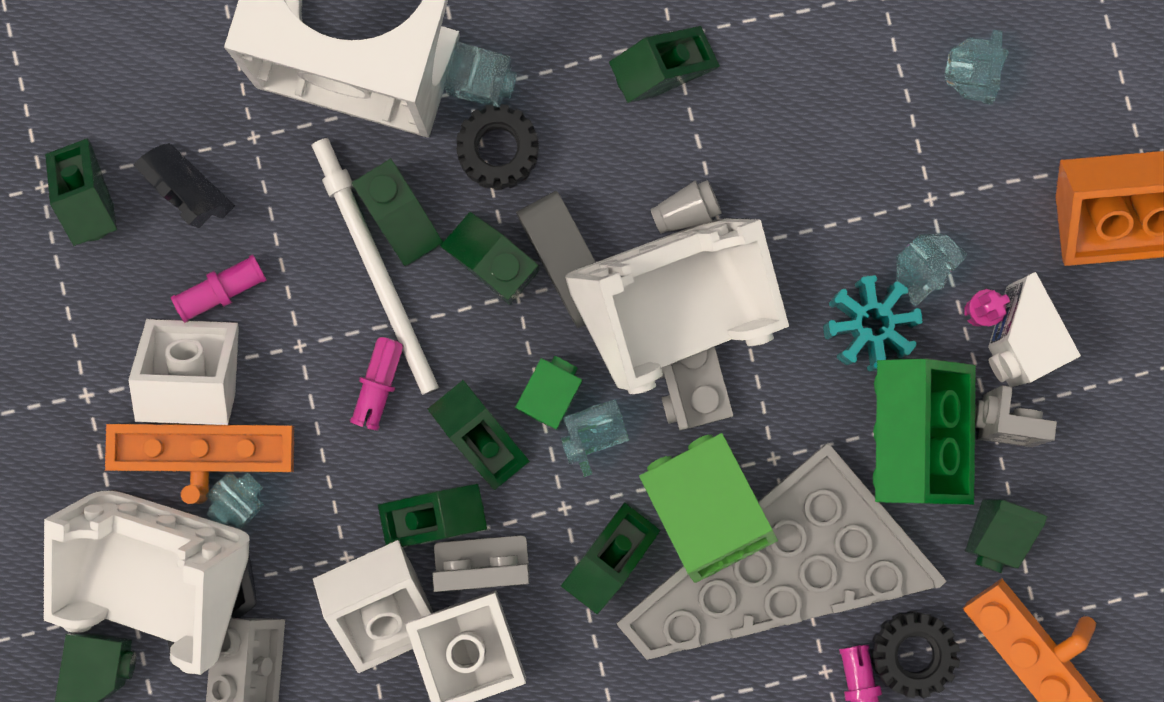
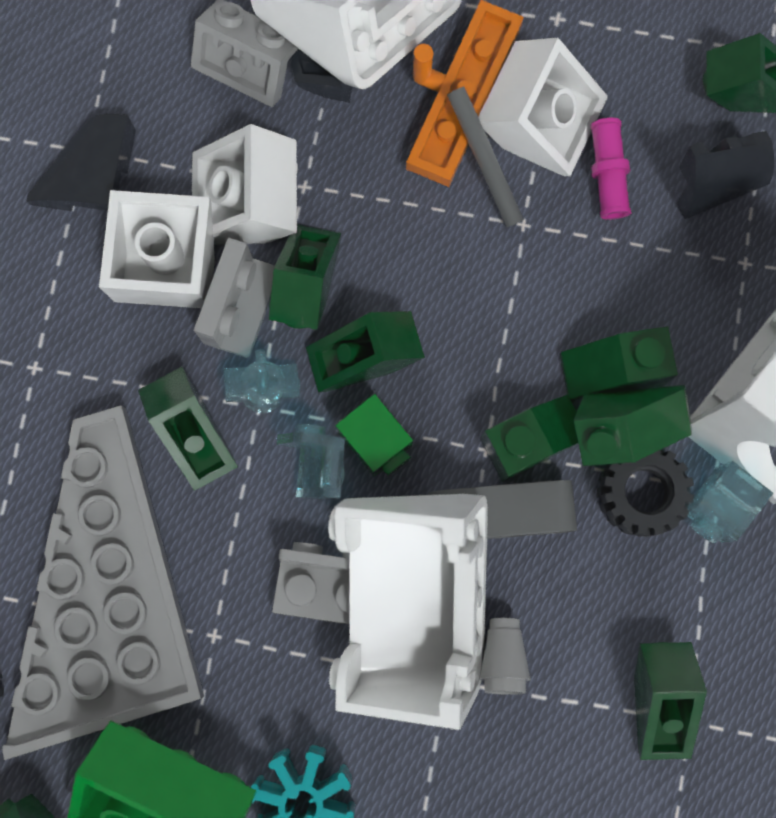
camera: 115 degrees right, 5 degrees down
(235, 500) = (401, 101): clear light blue gear -> none
(256, 403) = (485, 156): none -> dark grey bar
(339, 185) = (575, 323): white bar -> none
(377, 383) = (457, 278): dark pink axle -> none
(449, 181) = (631, 424): none -> dark green slope
(545, 512) = (261, 384): none -> clear light blue piece
(707, 507) = (190, 543): bright green brick -> none

